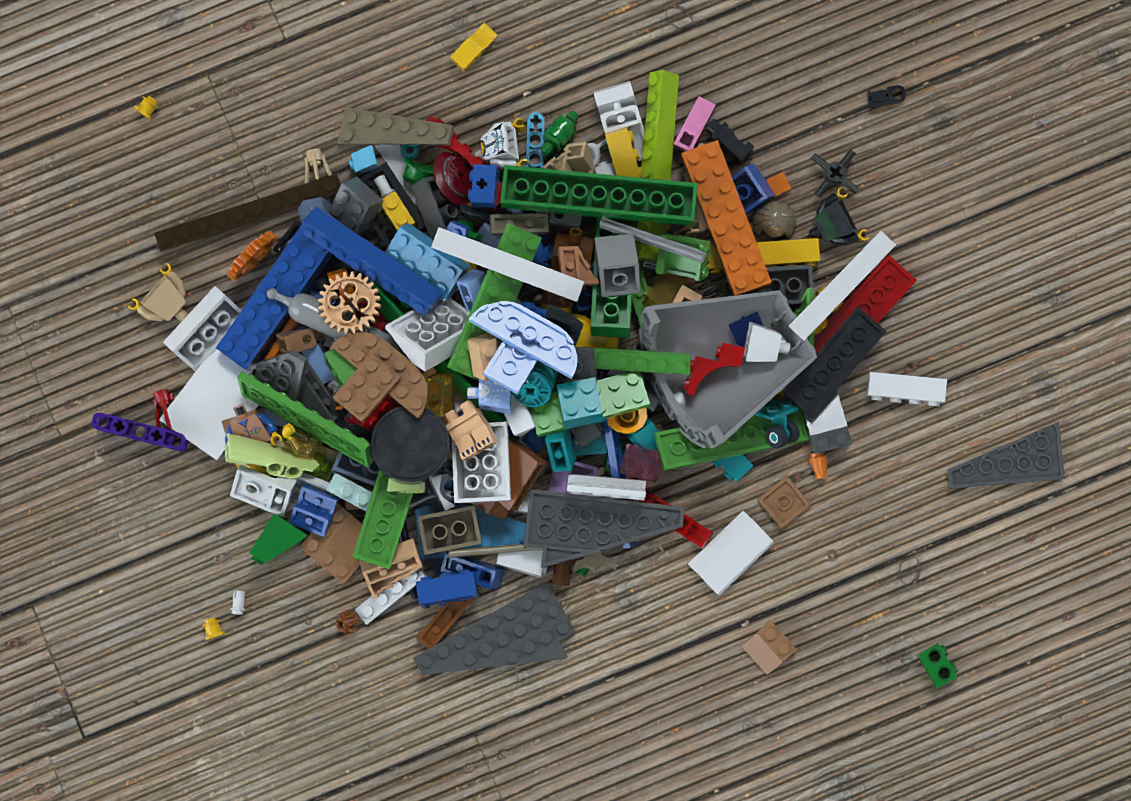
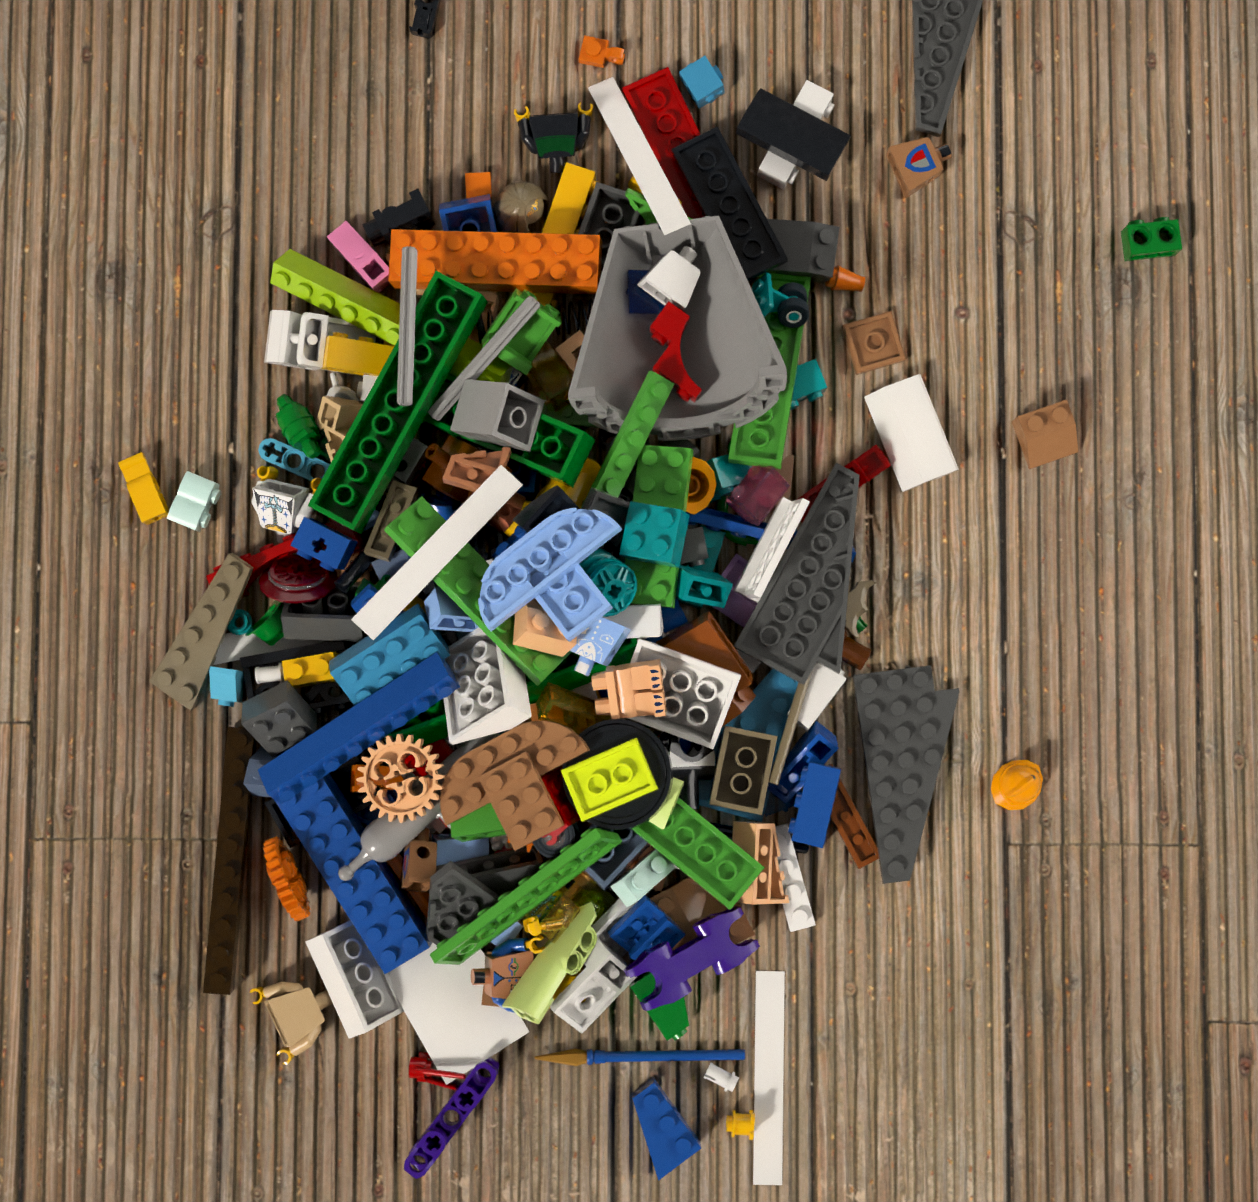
camera: 70 degrees left, 0 degrees up
(147, 106) = (38, 934): yellow brick -> none
(189, 577) = (664, 1128): none -> blue wedge
(212, 500) = (577, 1057): none -> blue piece
(251, 635) = (768, 1078): none -> white sticker
(314, 159) = (198, 748): tan plant -> none
(322, 556) = (674, 967): none -> dark purple piece
(347, 621) = (802, 947): dark orange gear -> none
(404, 440) = (609, 779): none -> neon yellow tile
(479, 84) = (194, 501): none -> light aqua brick
(518, 724) = (1016, 784): none -> light orange piece
(651, 180) = (407, 326): none -> light grey axle
(840, 167) = (489, 102): pearl dark grey bar -> none
(903, 385) = (792, 134): none -> black slope
(908, 226) = (597, 51): none -> orange plate
(916, 308) = (702, 81): none -> dark azure head
(922, 481) = (917, 163): none -> medium nougat torso

